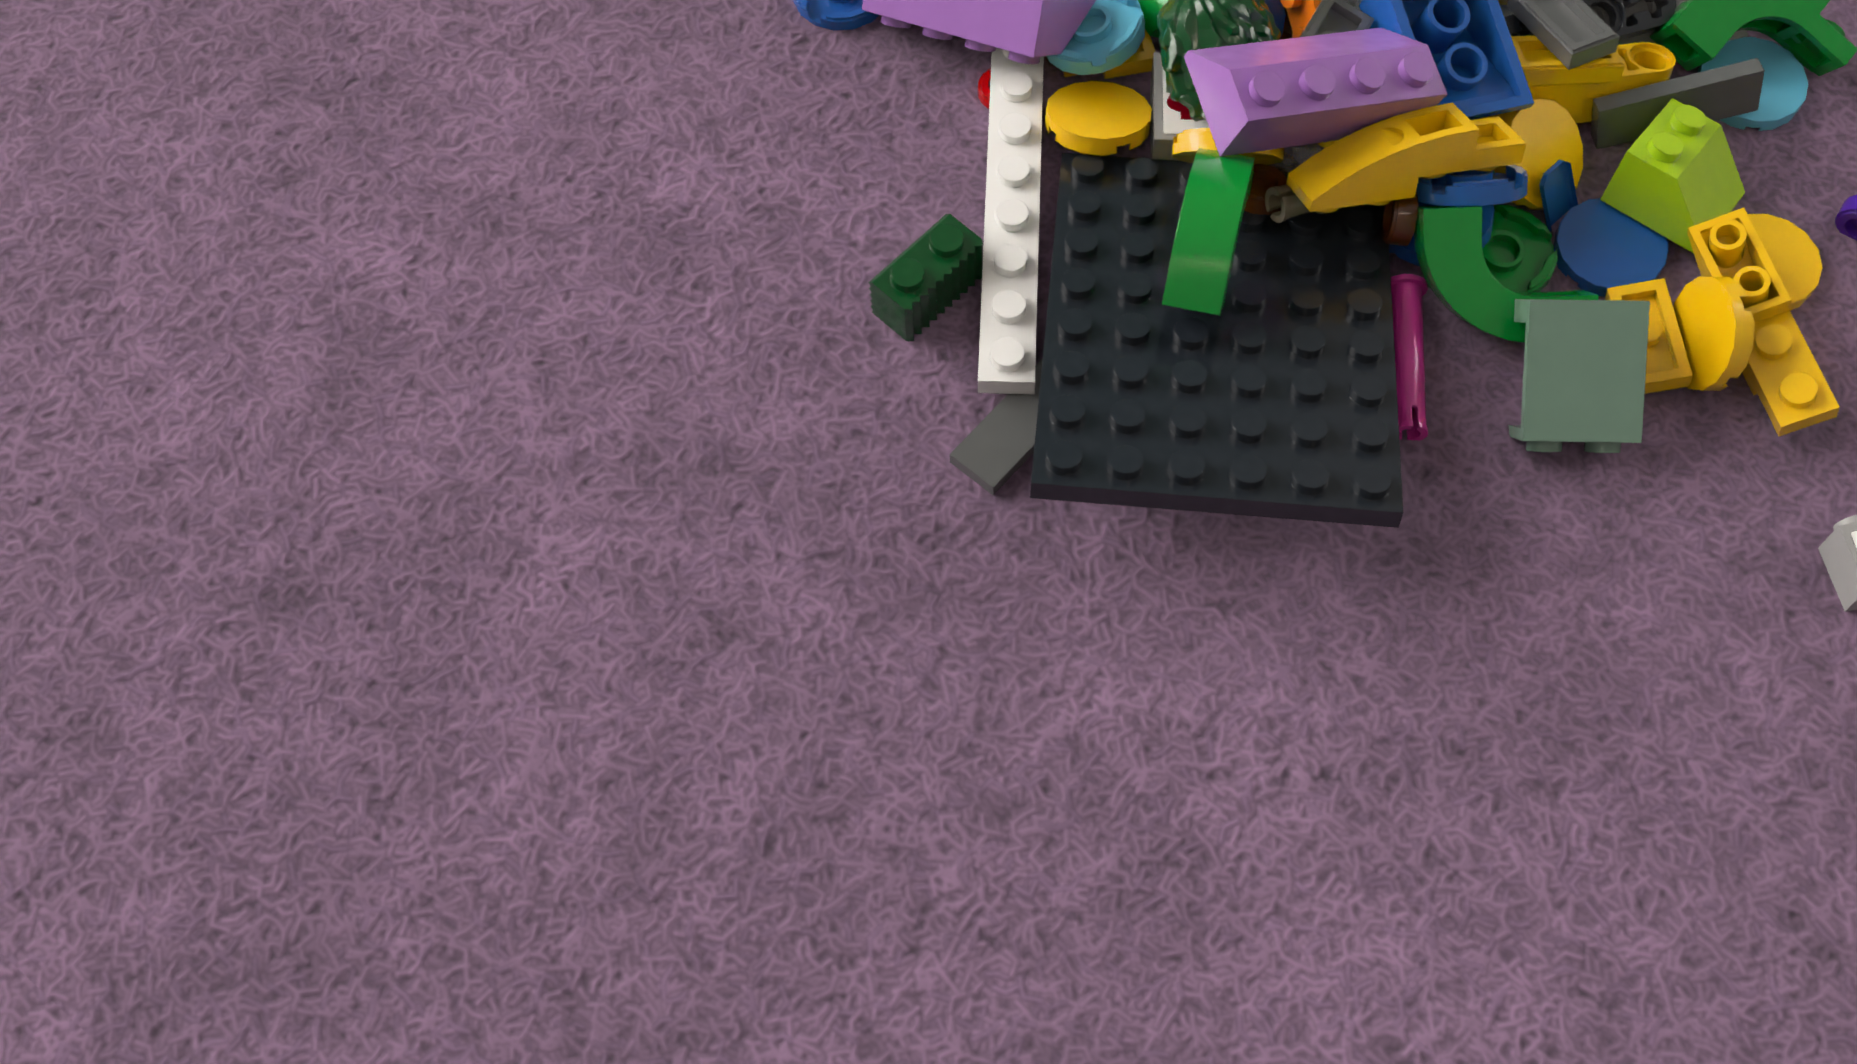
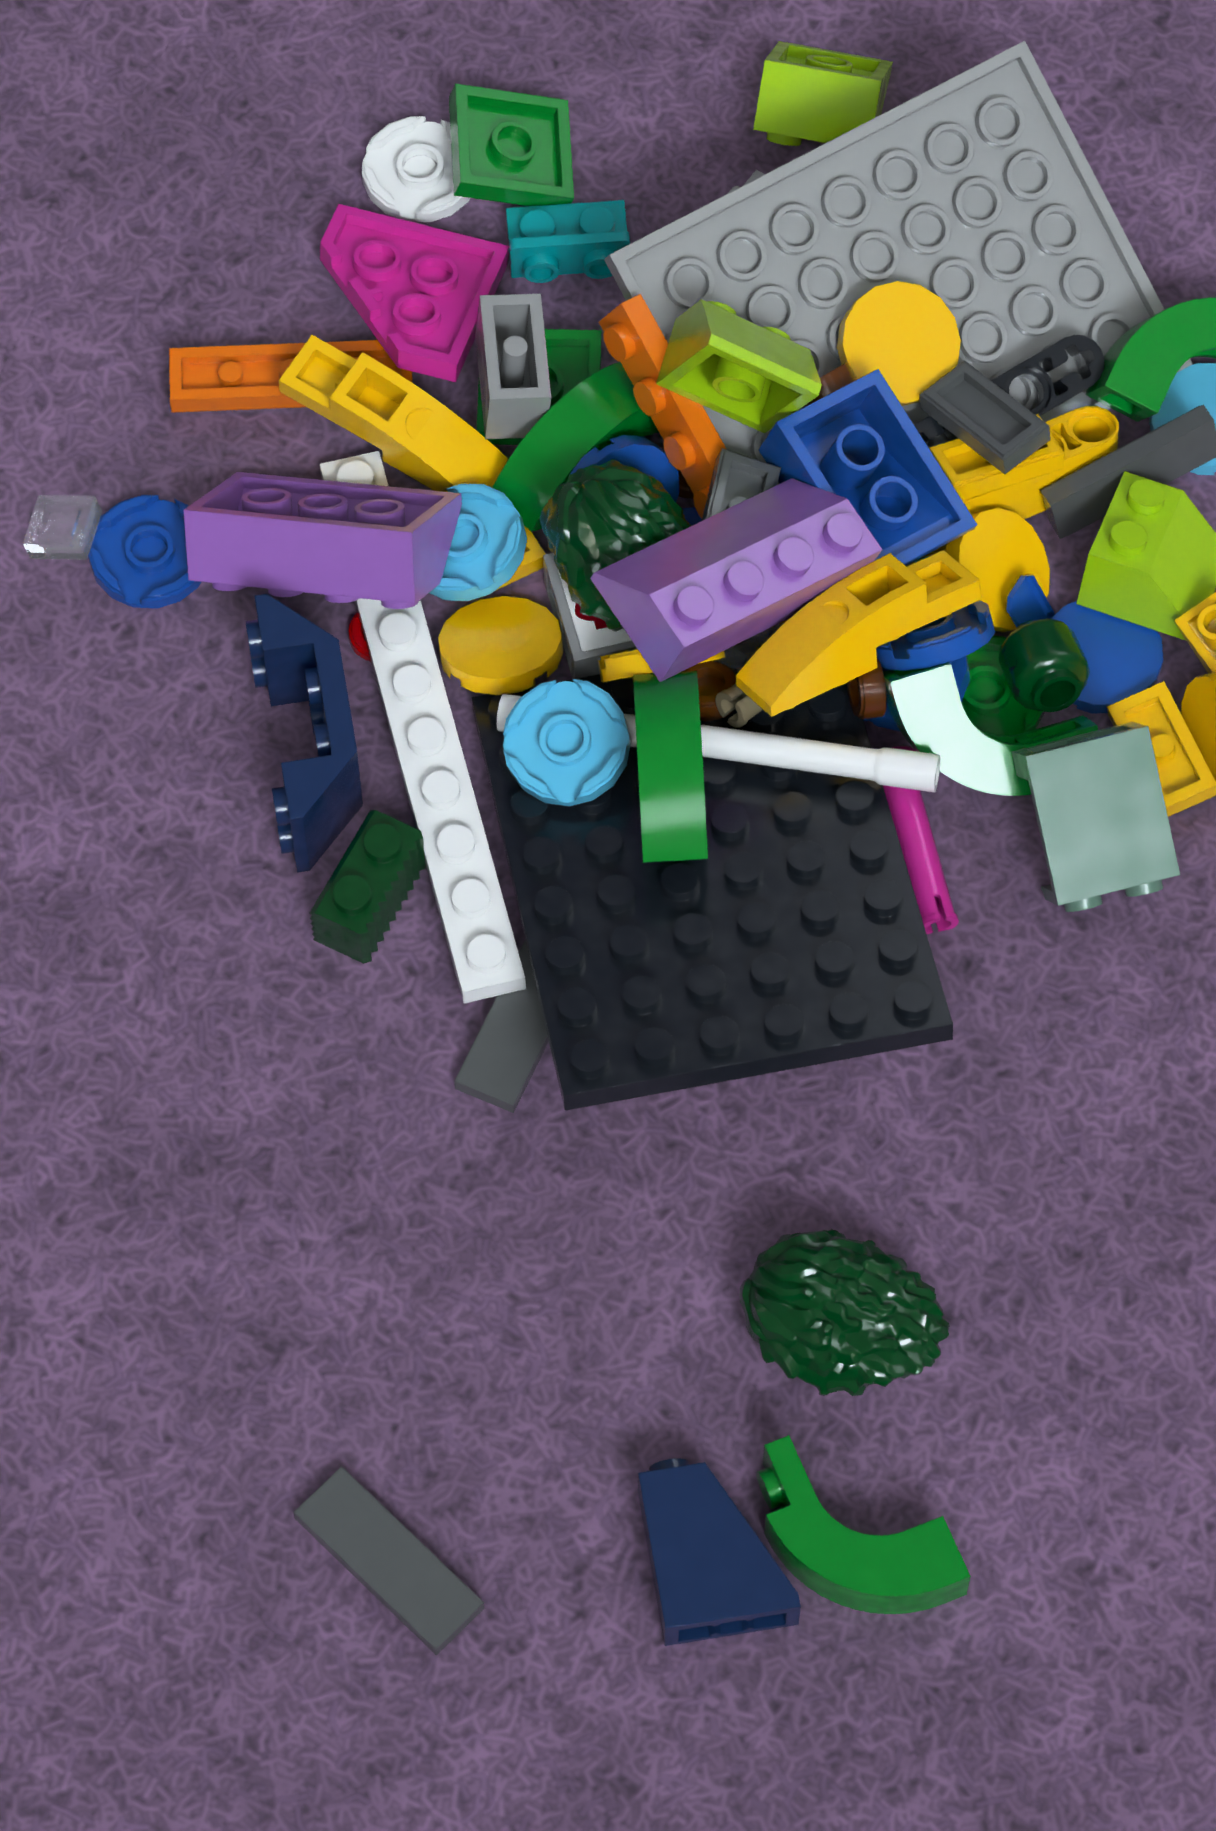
camera: 20 degrees left, 0 degrees up
(760, 854) = (389, 1560): none -> dark grey tile
(909, 188) = (300, 666): none -> dark blue slope
(1041, 937) = (707, 1559): none -> dark blue slope
(1127, 196) = (566, 742): none -> medium azure tile
(1186, 993) = (849, 1567): none -> green arch
(1230, 746) = (841, 1312): none -> dark green hair
(1396, 280) = (883, 765): none -> white piece
(1561, 238) = (1044, 665): none -> dark green head

